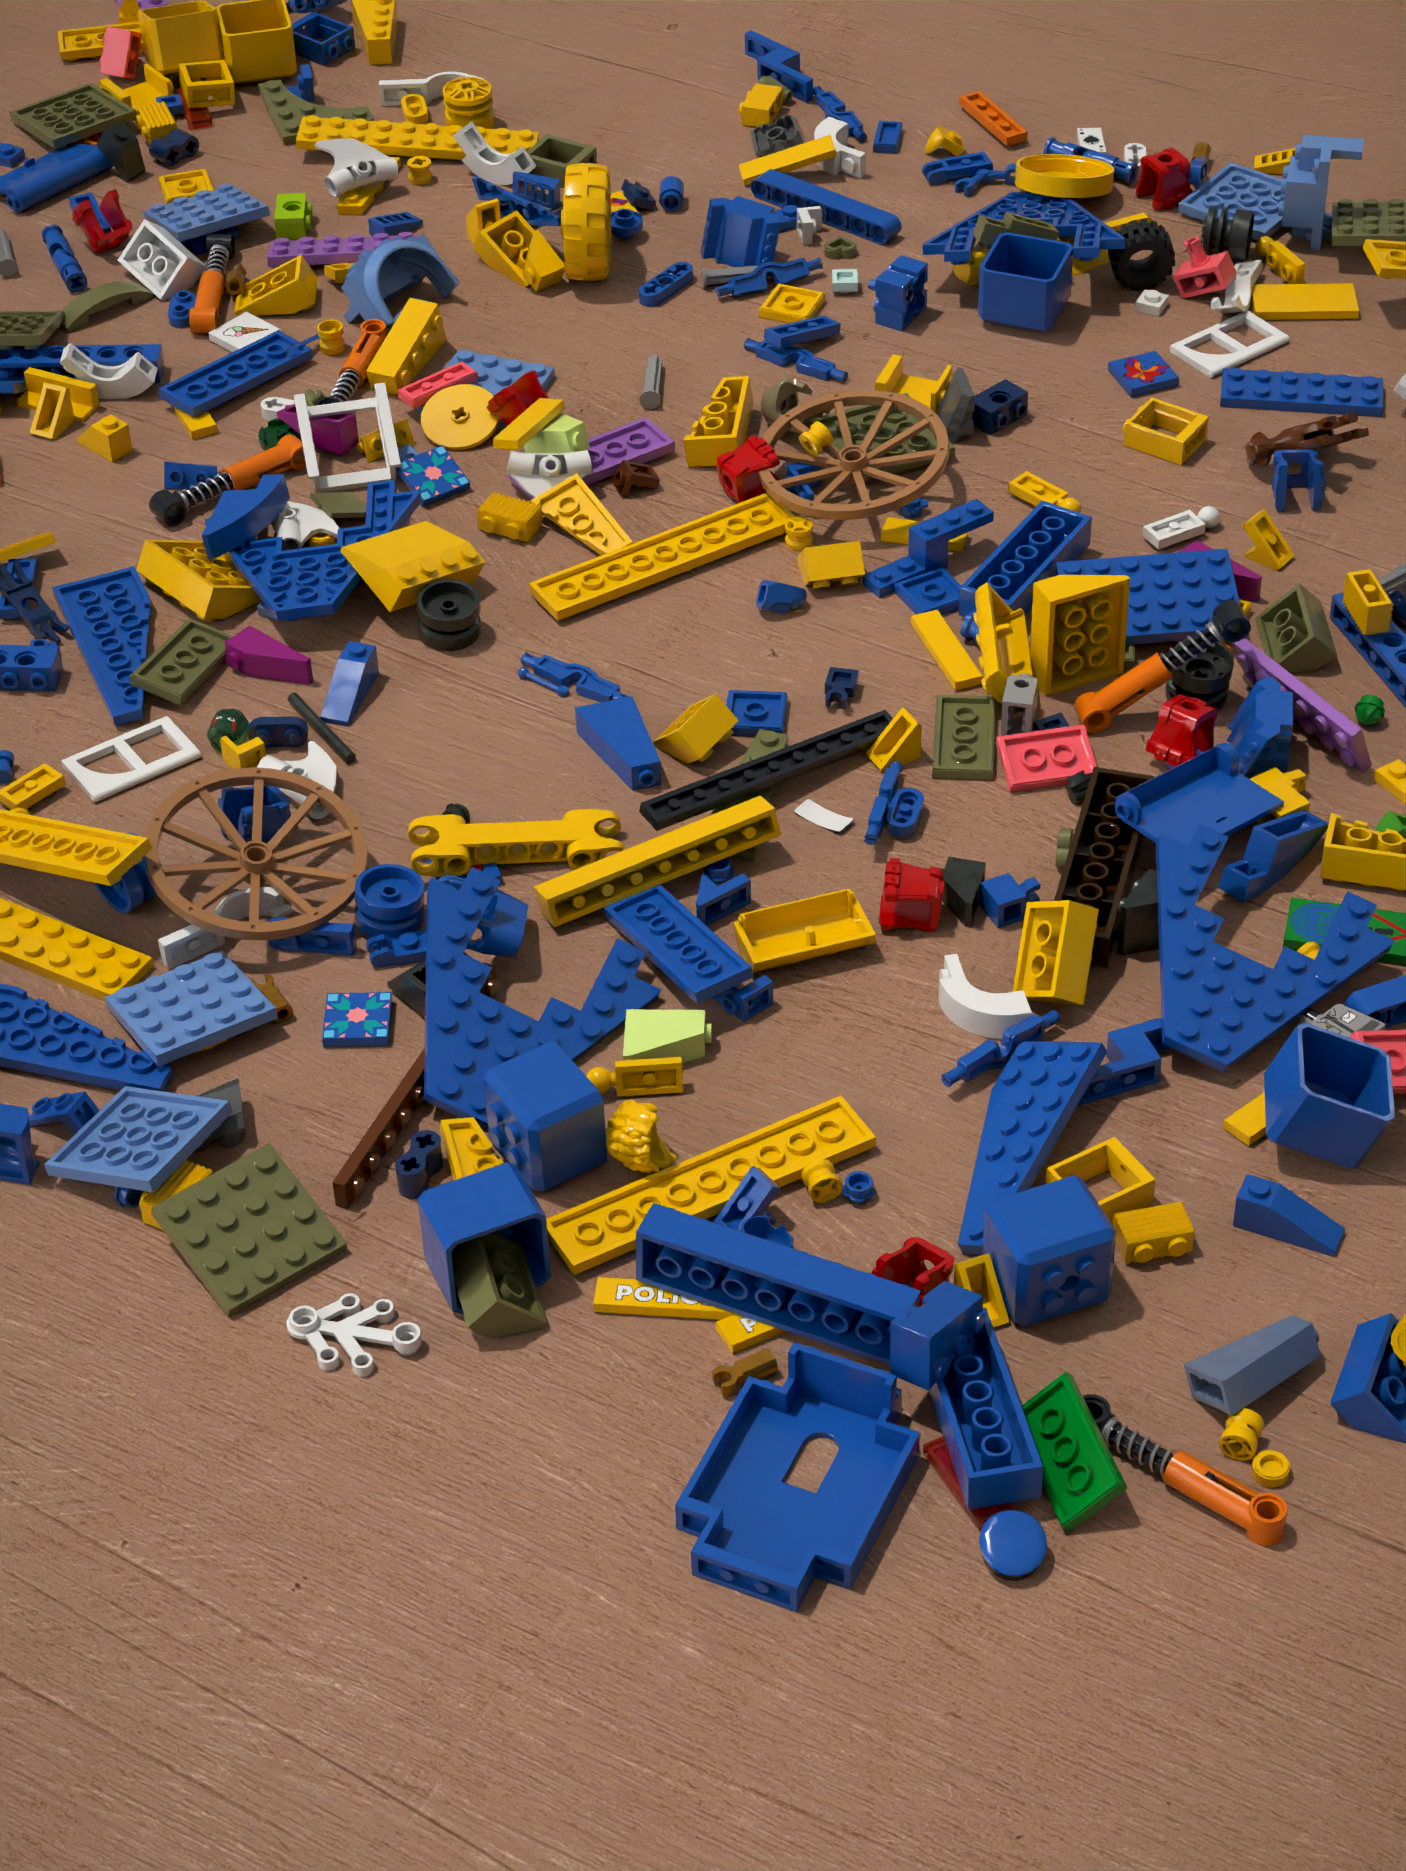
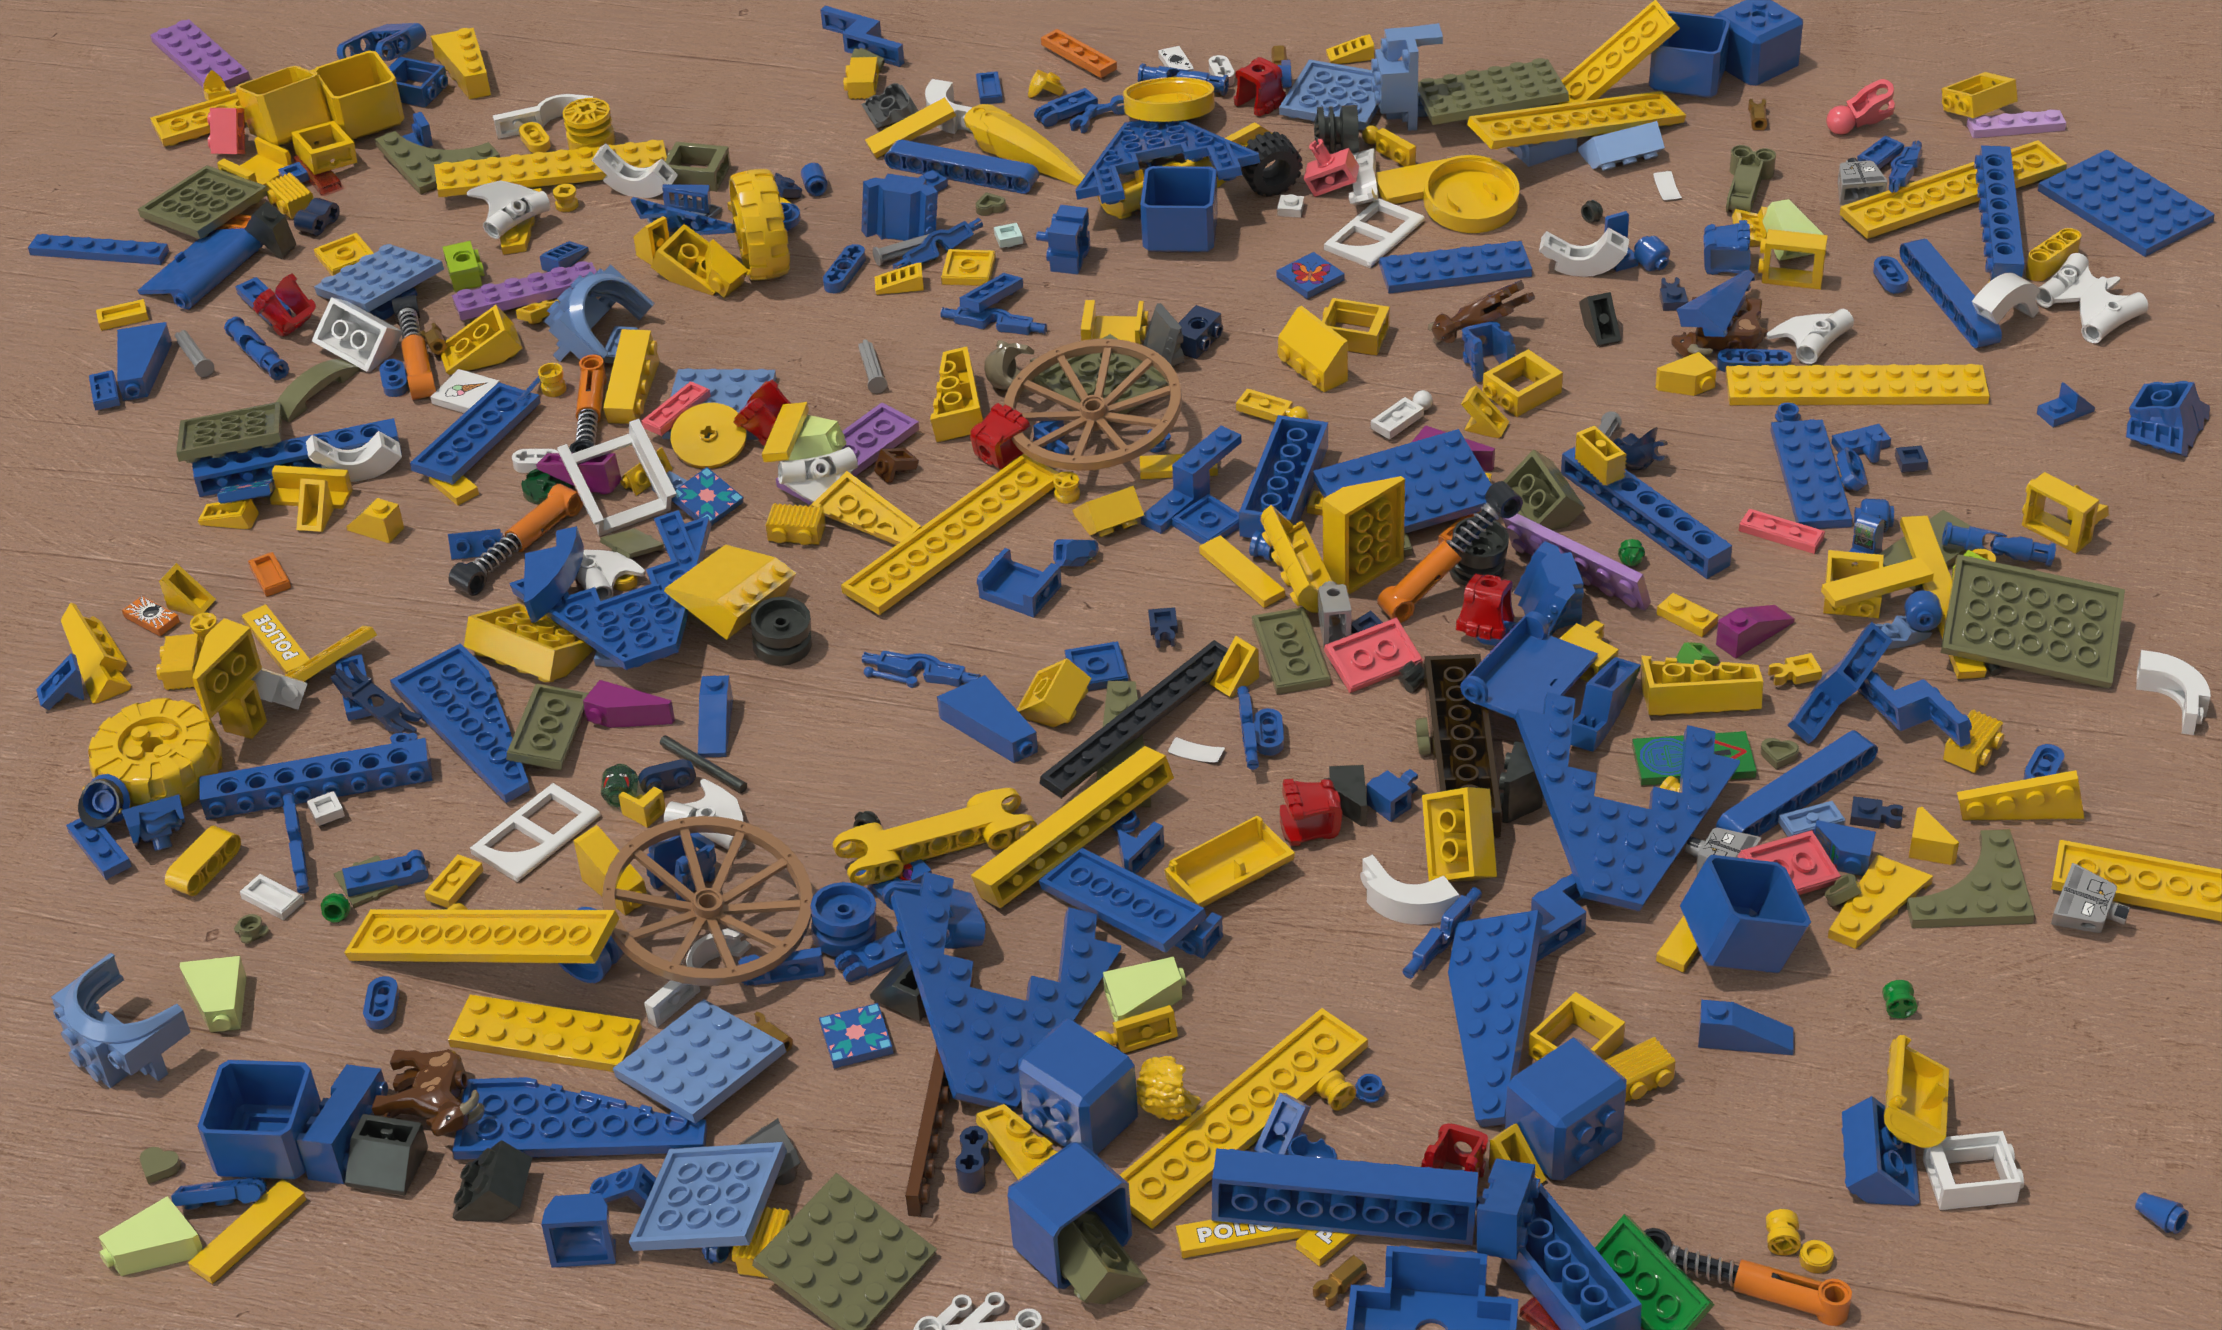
camera: 15 degrees left, 0 degrees up
(167, 779) = (594, 857): none -> yellow slope
(311, 398) = (554, 442): olive arm -> none
(708, 618) = (1018, 585): none -> blue panel
(718, 305) = (900, 280): none -> yellow slope
(808, 221) = (952, 186): white bracket -> none
(816, 438) = (1055, 395): yellow wheel -> none
(835, 109) = (930, 70): blue piece -> none
(886, 188) = (1013, 140): none -> yellow piece
(988, 229) = (1133, 166): olive slope -> none
(1110, 446) = (1314, 350): none -> yellow slope
(1252, 1365) = (1770, 1169): sand blue slope -> none
(1347, 322) = (1471, 194): none -> yellow brick
(1347, 527) = (1545, 376): none -> yellow window

